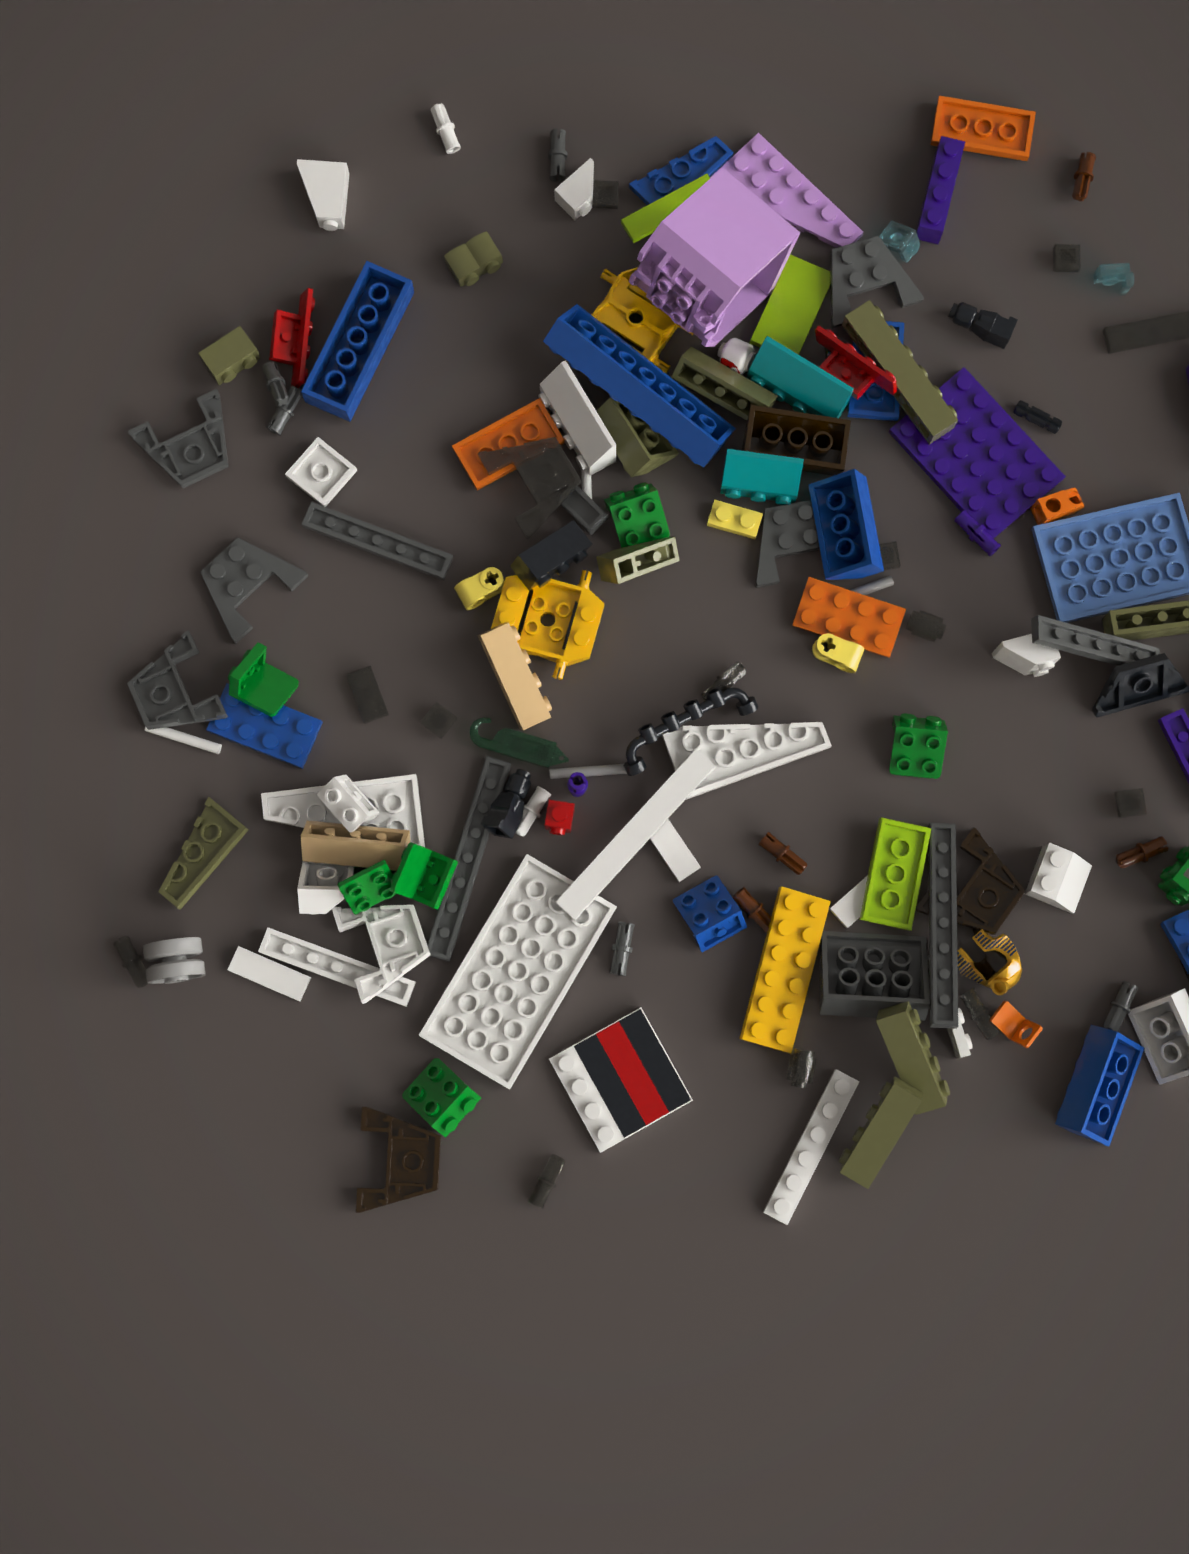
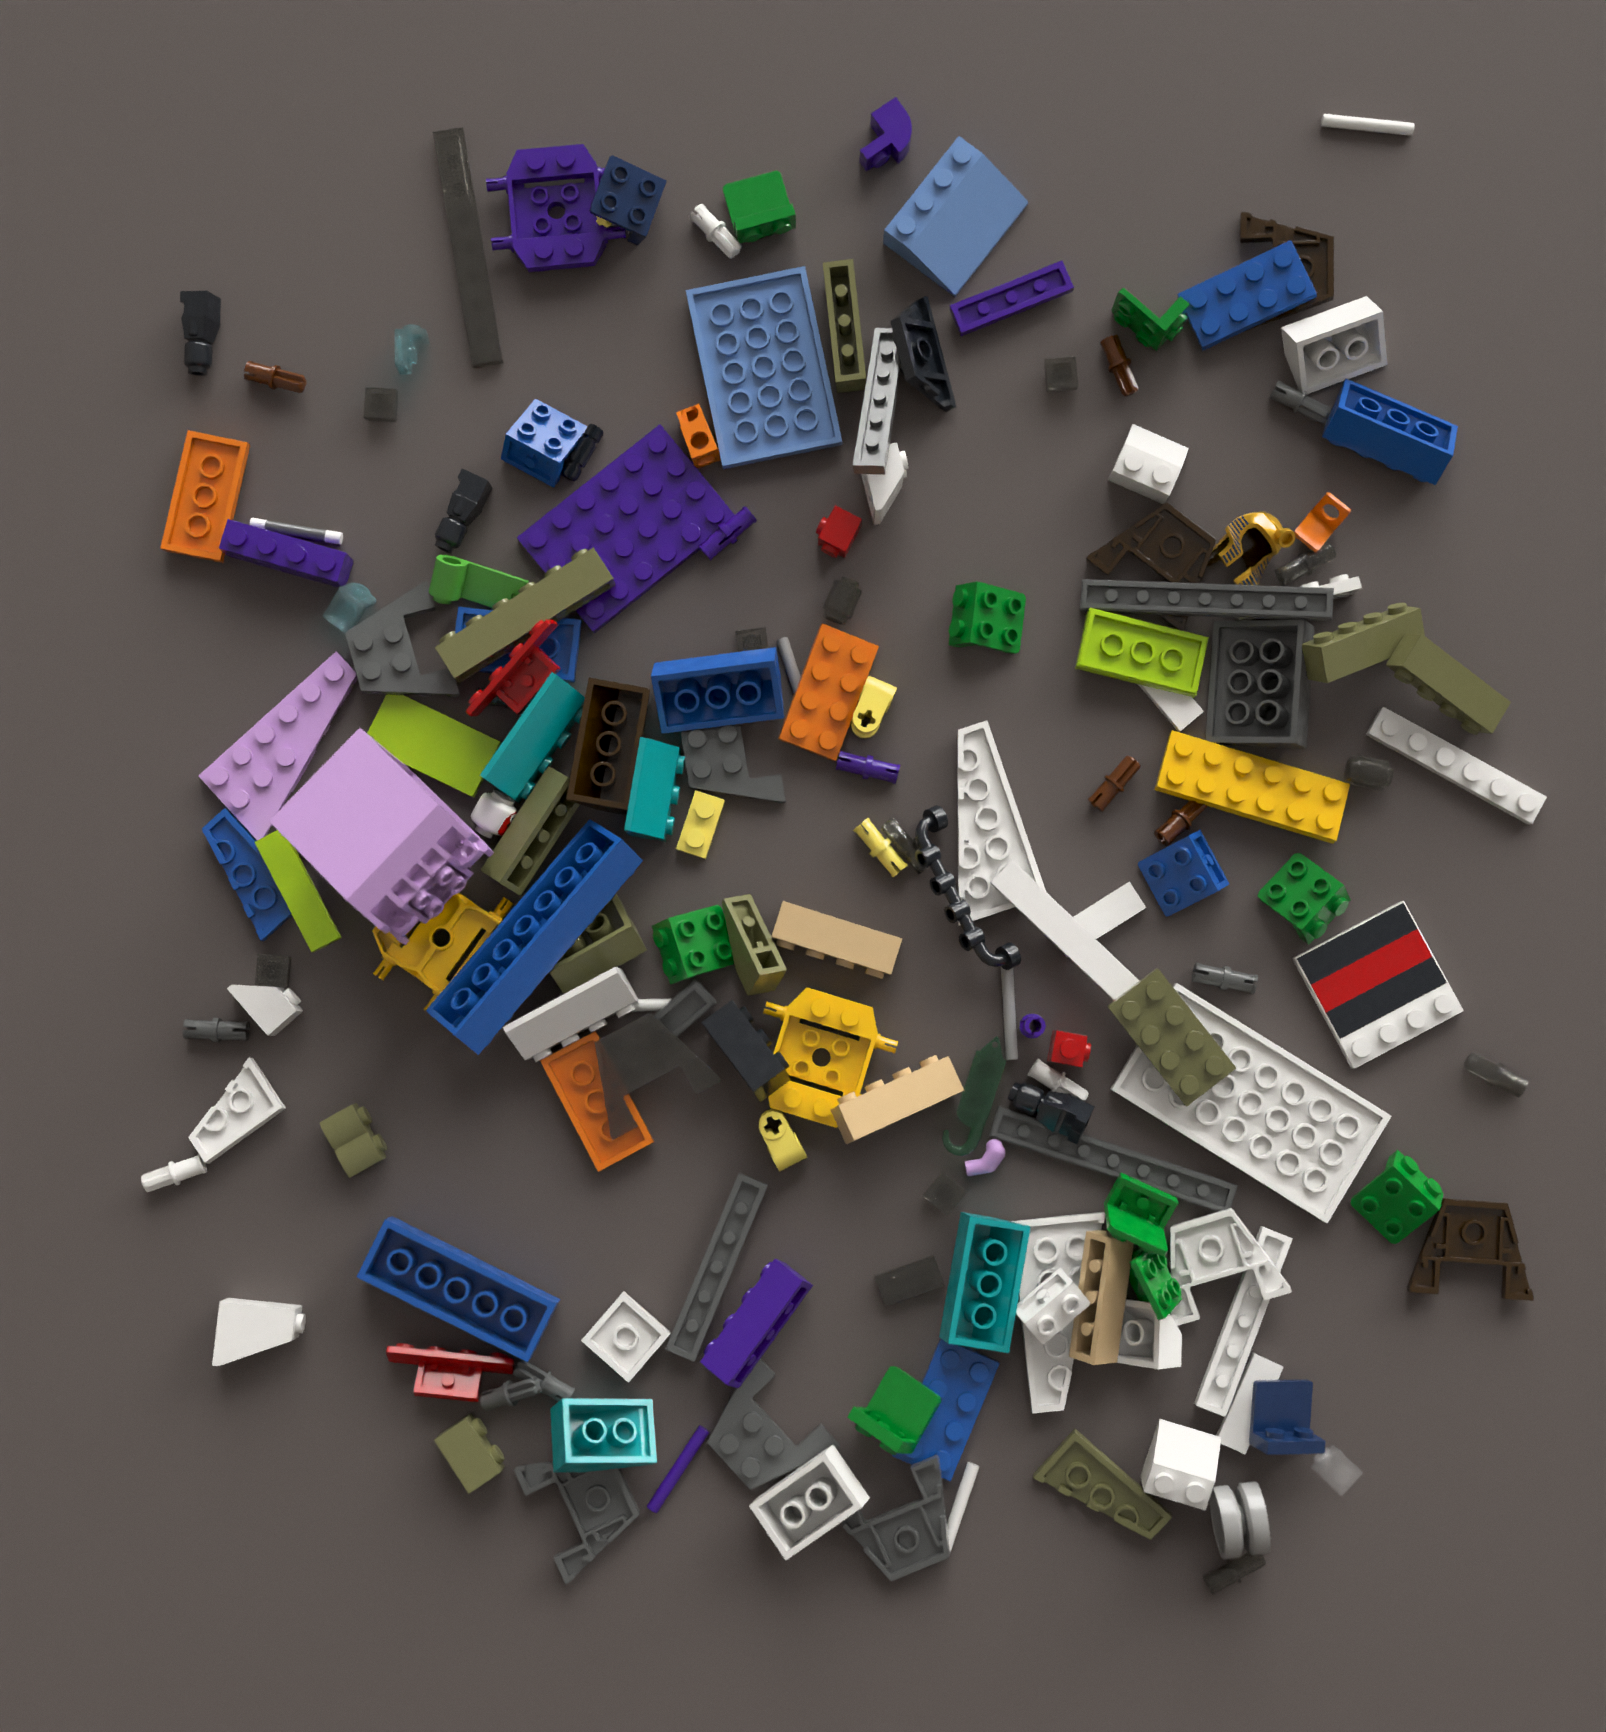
camera: 85 degrees left, 5 degrees up
(190, 614) = (809, 1502): none -> white brick
(215, 1046) = (1336, 1469): none -> clear bracket
(216, 516) = (678, 1469): none -> dark purple bar
(219, 914) = (1181, 1464): none -> white slope
(244, 455) = (602, 1434): none -> teal slope
(257, 999) = (1283, 1418): none -> dark blue bracket
(332, 571) = (755, 1323): none -> dark purple brick
(366, 751) = (984, 1282): none -> teal slope
(465, 756) = (989, 1161): none -> lavender arm
(494, 176) = (238, 1113): none -> white wing
(571, 898) = (1171, 1037): none -> olive plate
(645, 627) = (836, 938): none -> tan brick
(692, 1015) = (1305, 897): none -> green bracket
(721, 662) = (880, 847): none -> light yellow pin
(788, 651) = (867, 767): none -> dark purple pin
(927, 324) = (460, 578): none -> bright green door
(959, 199) = (299, 531): none -> dark grey bar
(983, 621) = (838, 532): none -> red brick
(1045, 383) = (541, 442): none -> blue bracket
(1121, 117) = (200, 328): none -> black piece

